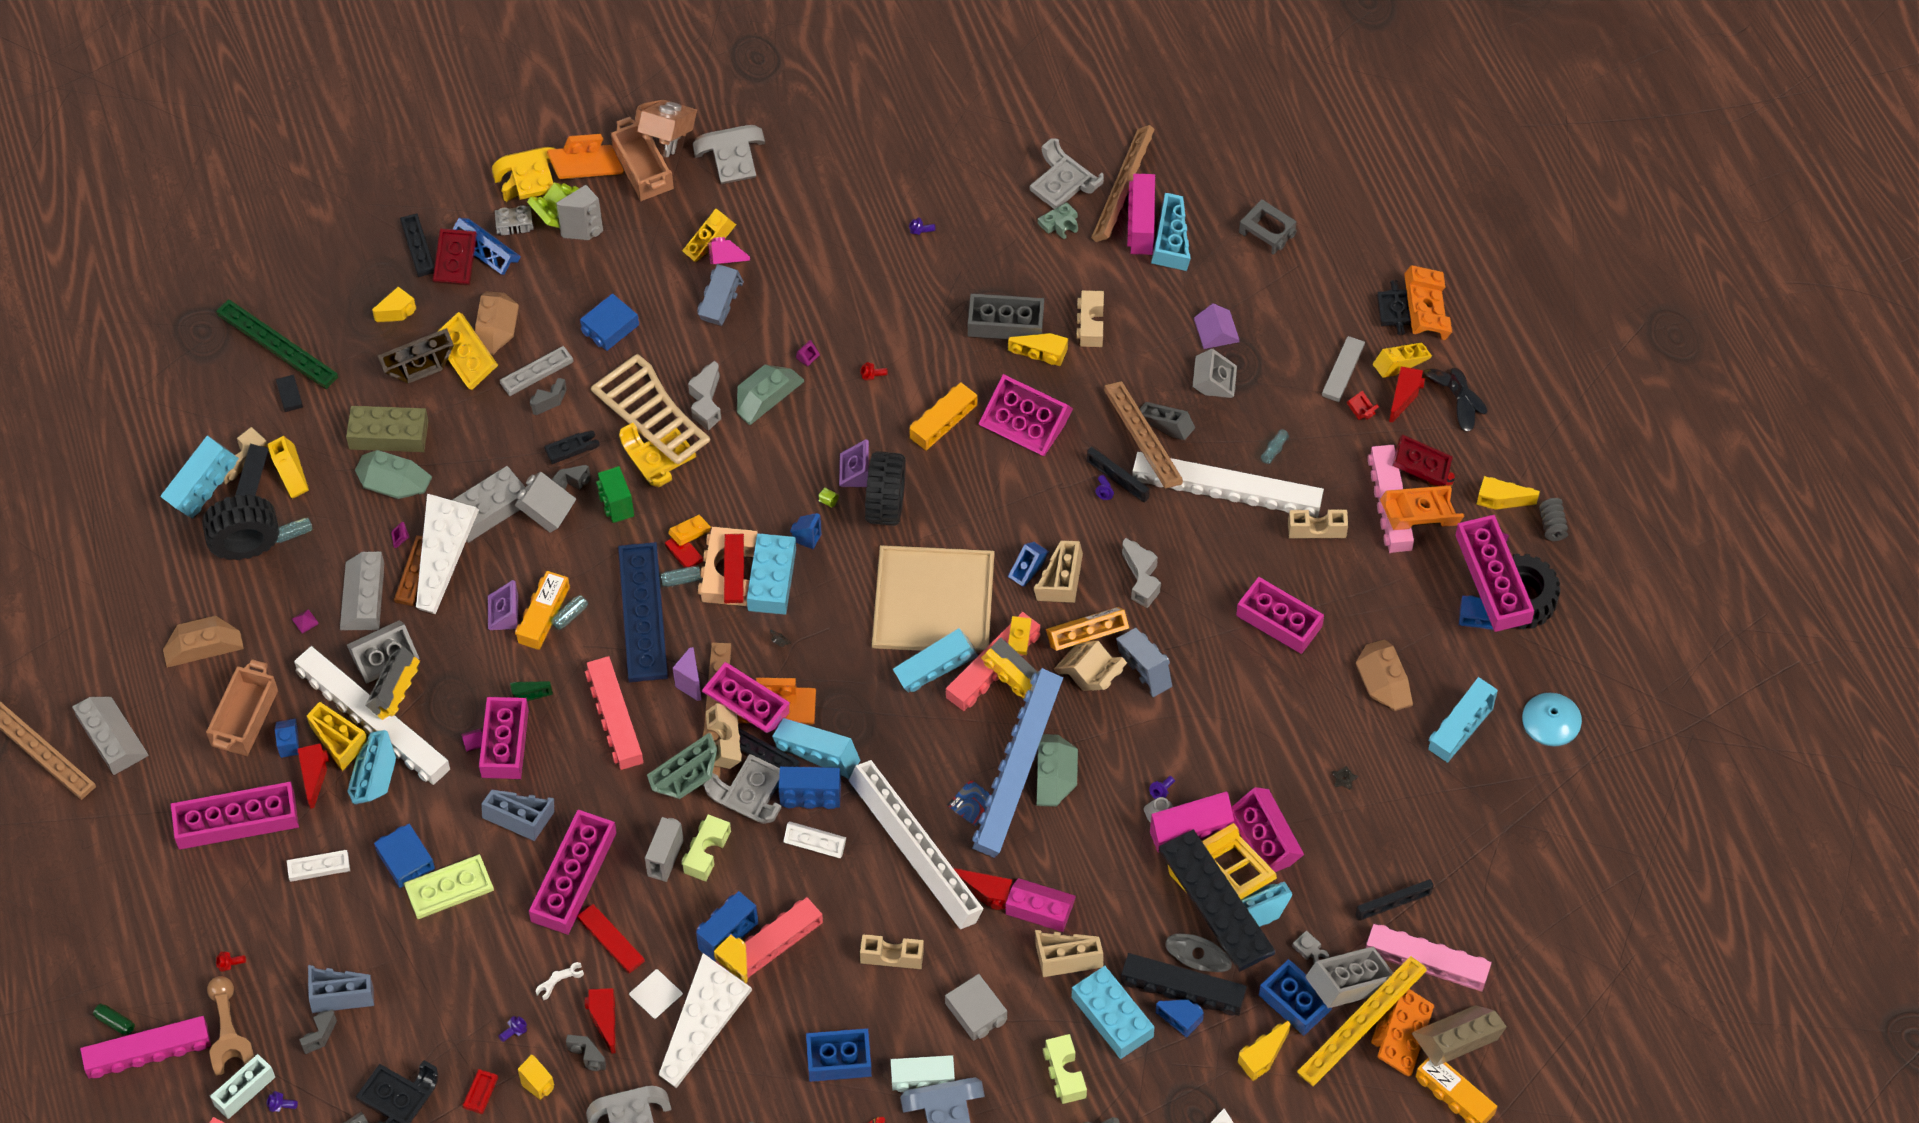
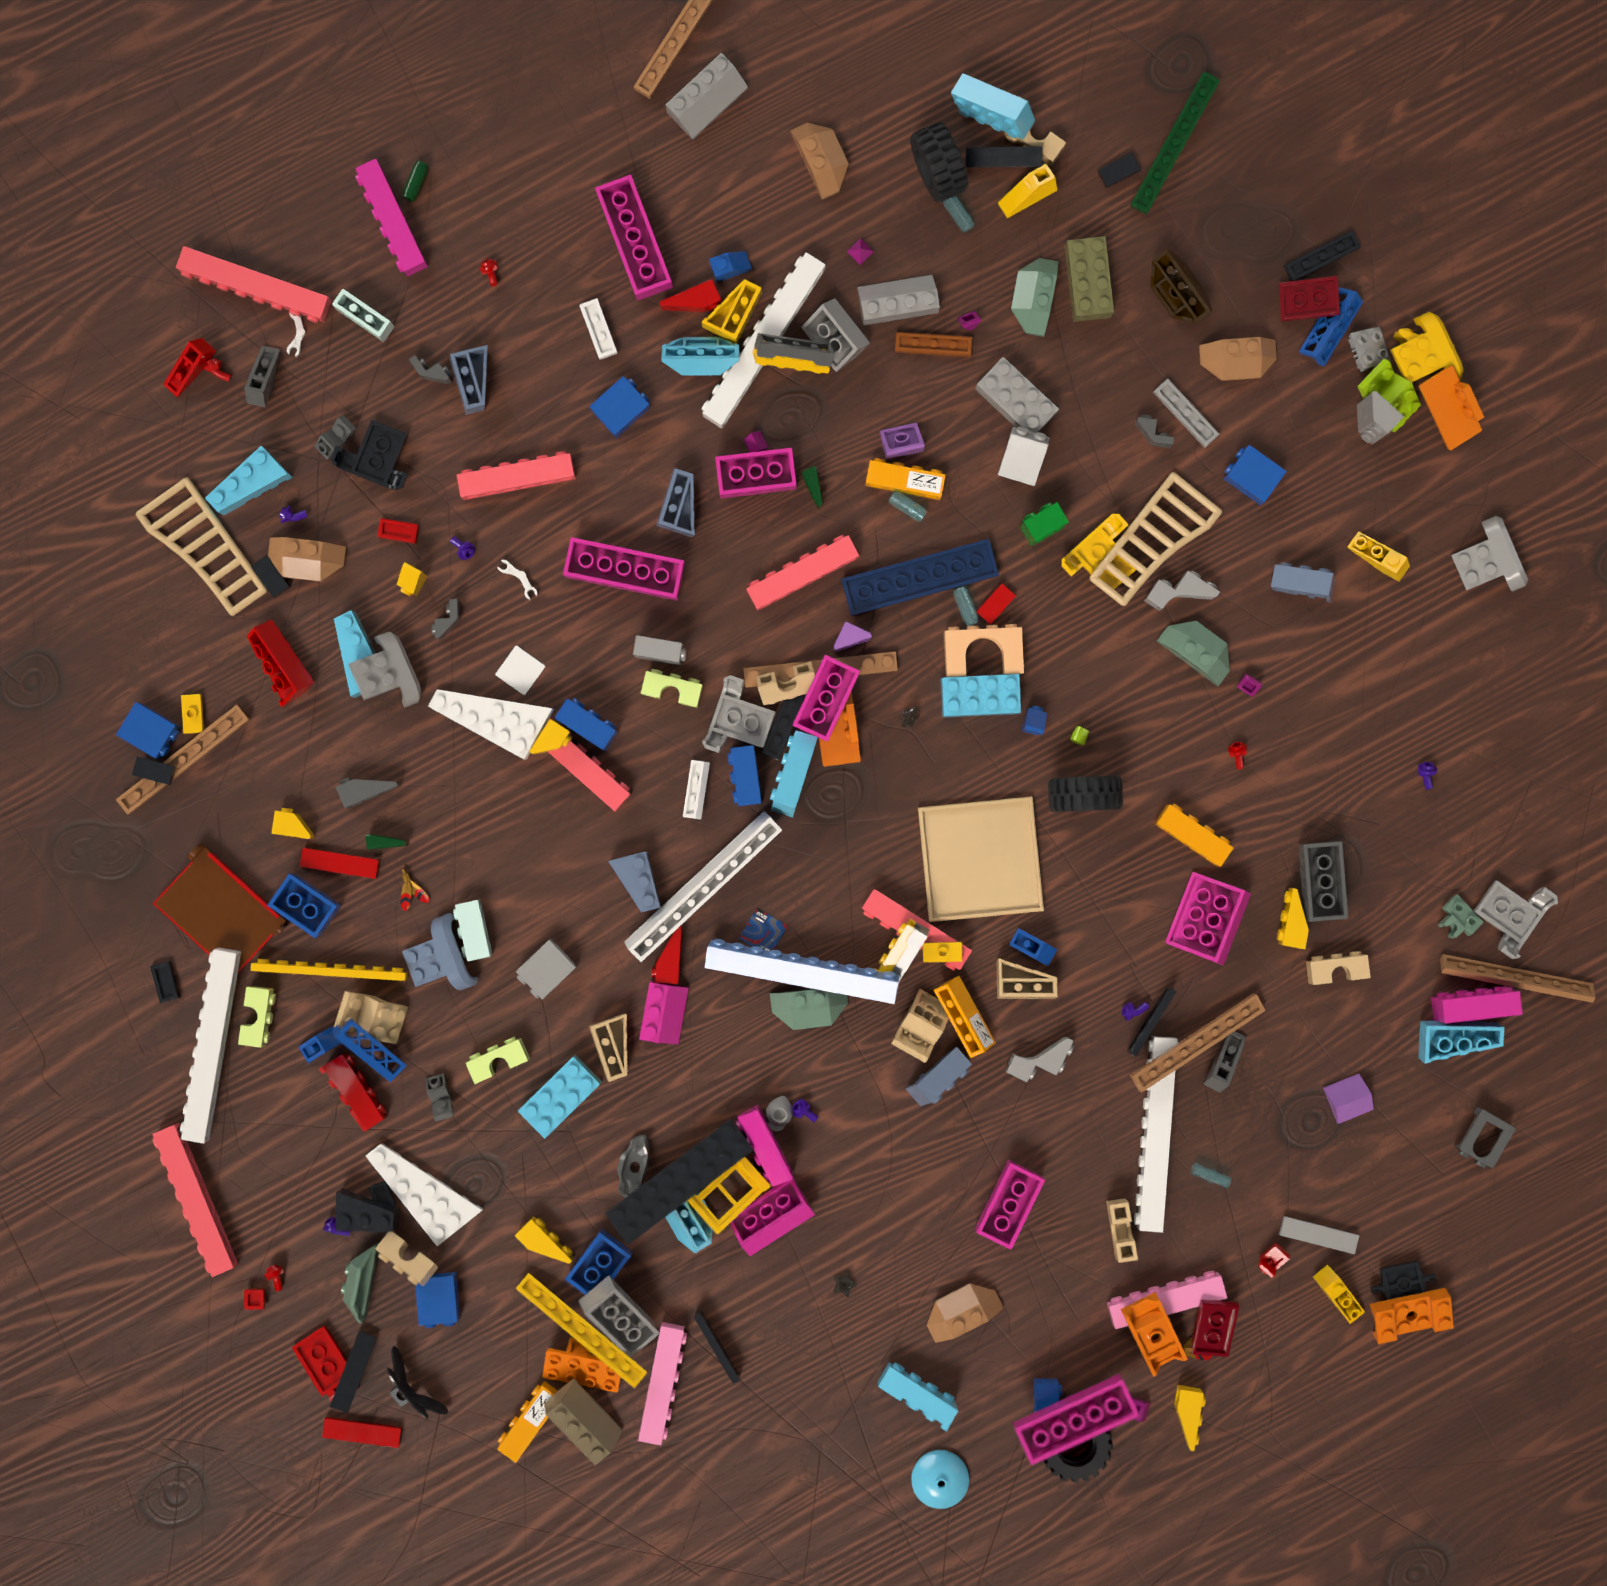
camera: 75 degrees right, 30 degrees up
(229, 1044) = (456, 271): medium nougat piece -> none
(242, 709) = (745, 215): nougat container -> none
(276, 1101) = (359, 349): dark purple plate -> none
(394, 307) = (1238, 252): yellow slope -> none
(444, 537) = (964, 366): white wing -> none
(448, 886) = (597, 455): yellowish green tile -> none
(451, 964) = (516, 476): none -> coral brick
(468, 354) = (1192, 338): yellow plate -> none
(571, 446) = (1098, 466): black hinge -> none
(573, 476) = (1063, 481): dark grey slope -> none
(602, 1012) = (487, 626): red slope -> none
(611, 938) = (567, 618): red tile -> none
(641, 160) = (1464, 466): nougat container -> none
(665, 121) = (1511, 482): nougat piece -> none
(686, 769) = (742, 654): sand green wedge -> none
(689, 530) = (1019, 605): light orange plate -> none
(725, 252) = (1351, 580): dark pink slope -> none
(734, 568) = (975, 658): red tile -> none
(838, 1055) = (476, 851): blue brick -> none
(855, 465) = (1120, 755): medium lavender slope -> none
(878, 952) = (588, 882): tan arch -> none
(898, 905) = (638, 879): none -> sand blue wedge
(935, 660) = (902, 874): medium azure wedge -> none
(1181, 1015) = (568, 1160): blue slope -> none
(1183, 984) = (599, 1158): black brick -> none
(1214, 374) = (1287, 1104): light grey slope -> none
(1309, 947) = (658, 1269): light grey plate -> none
(1407, 389) = (1305, 1303): red slope -> none
(1466, 399) = (1300, 1365): black piece -> none
(1553, 519) = (1166, 1465): dark grey piece -> none

